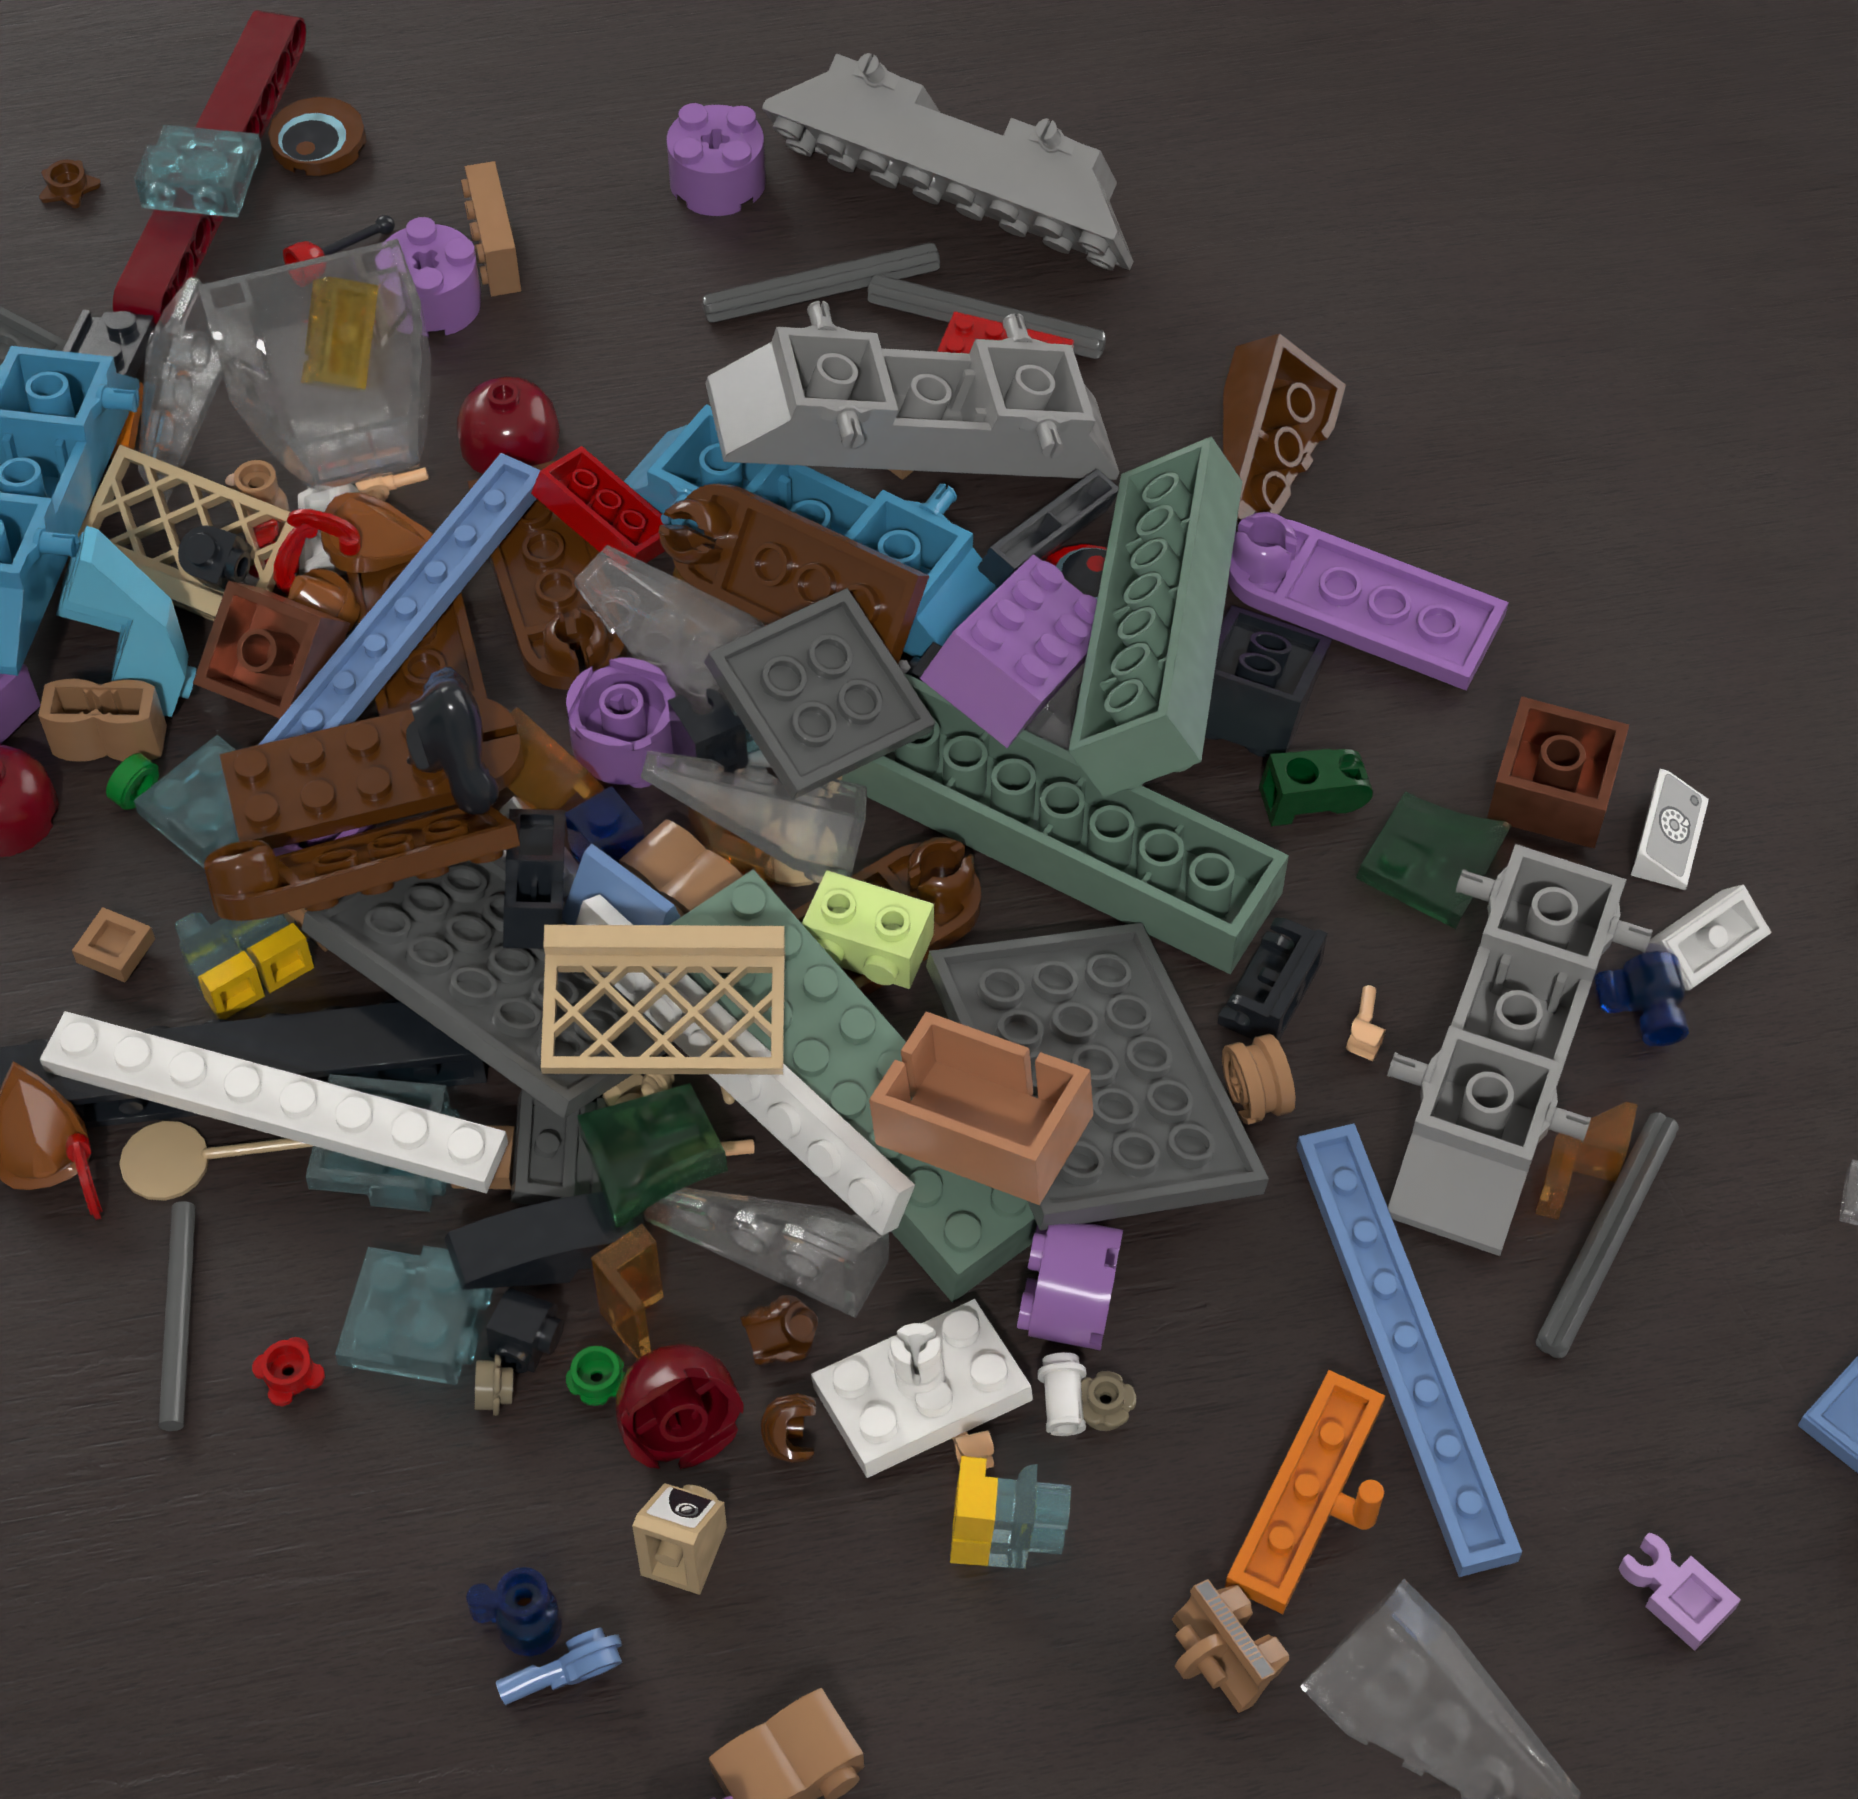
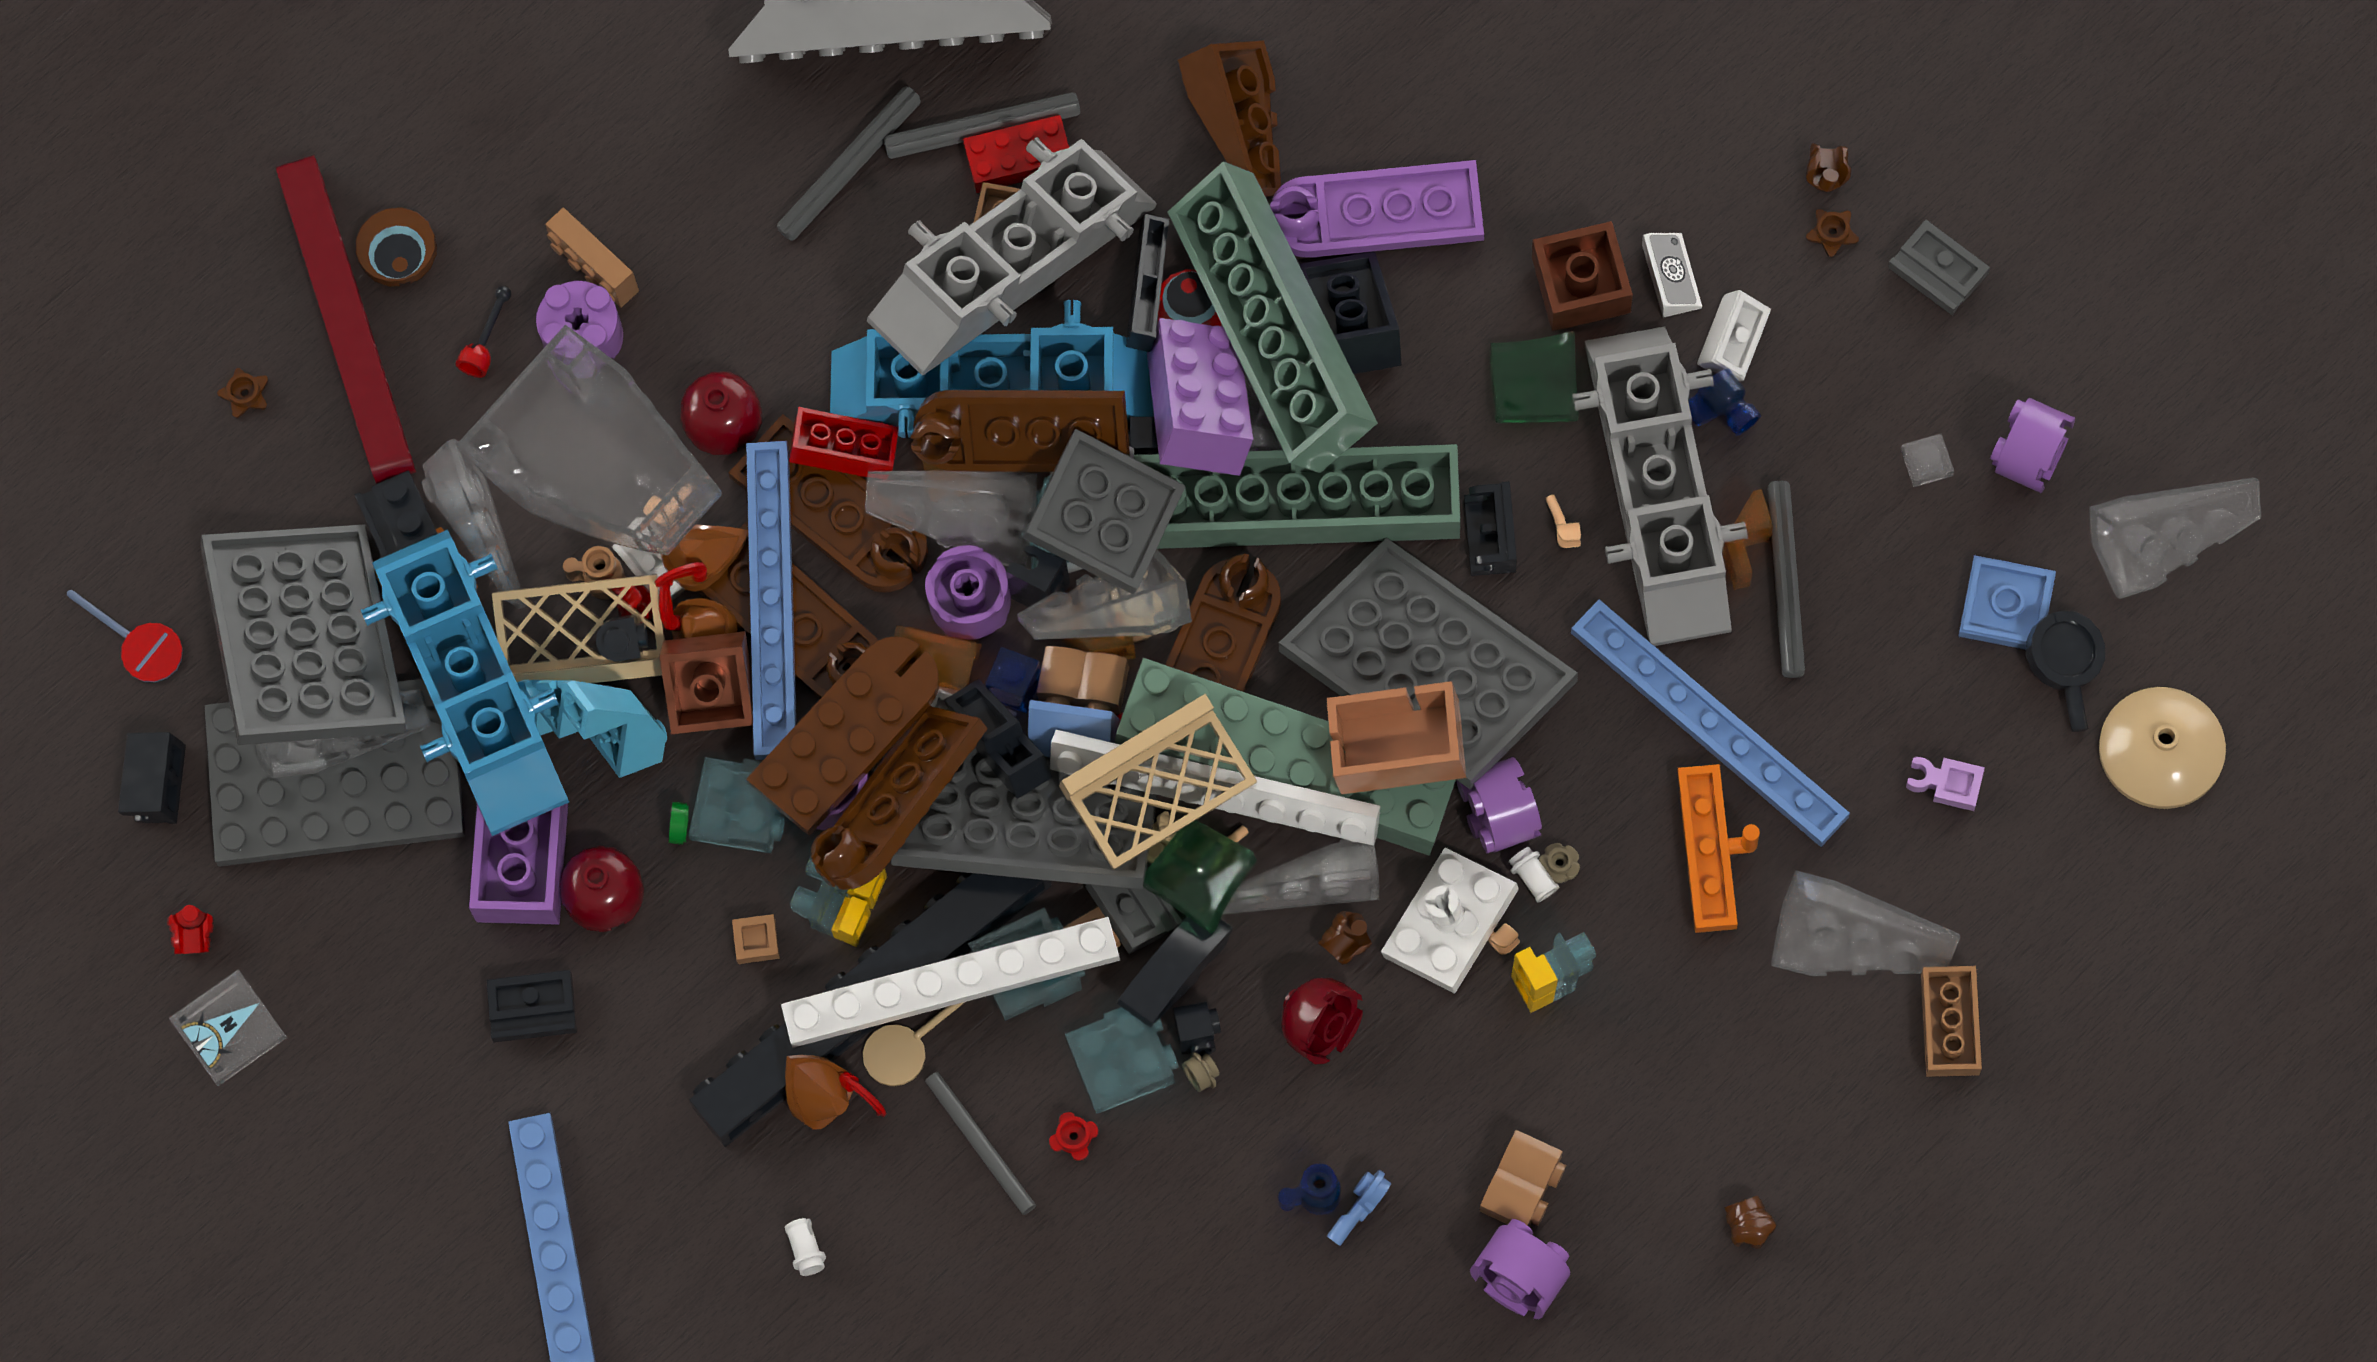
camera: 25 degrees left, 15 degrees up
(102, 720) = (637, 791): medium nougat brick -> none
(198, 170) = (356, 337): clear light blue plate -> none
(339, 334) = (583, 424): clear yellow brick -> none
(450, 738) = (897, 683): black head -> none
(591, 1361) = (1253, 1018): green plate -> none
(627, 1285) = (1242, 975): clear orange panel -> none
(679, 1535) = (1376, 1091): tan slope -> none
(716, 158) = (702, 84): medium lavender brick -> none
(785, 1421) = (1385, 990): reddish brown arm -> none
(871, 928) = (1231, 649): yellowish green brick -> none
(1221, 1647) = (1716, 969): medium nougat hips -> none
(1259, 1078) = (1525, 604): medium nougat wheel -> none
(1313, 783) = (1431, 373): dark green leg -> none

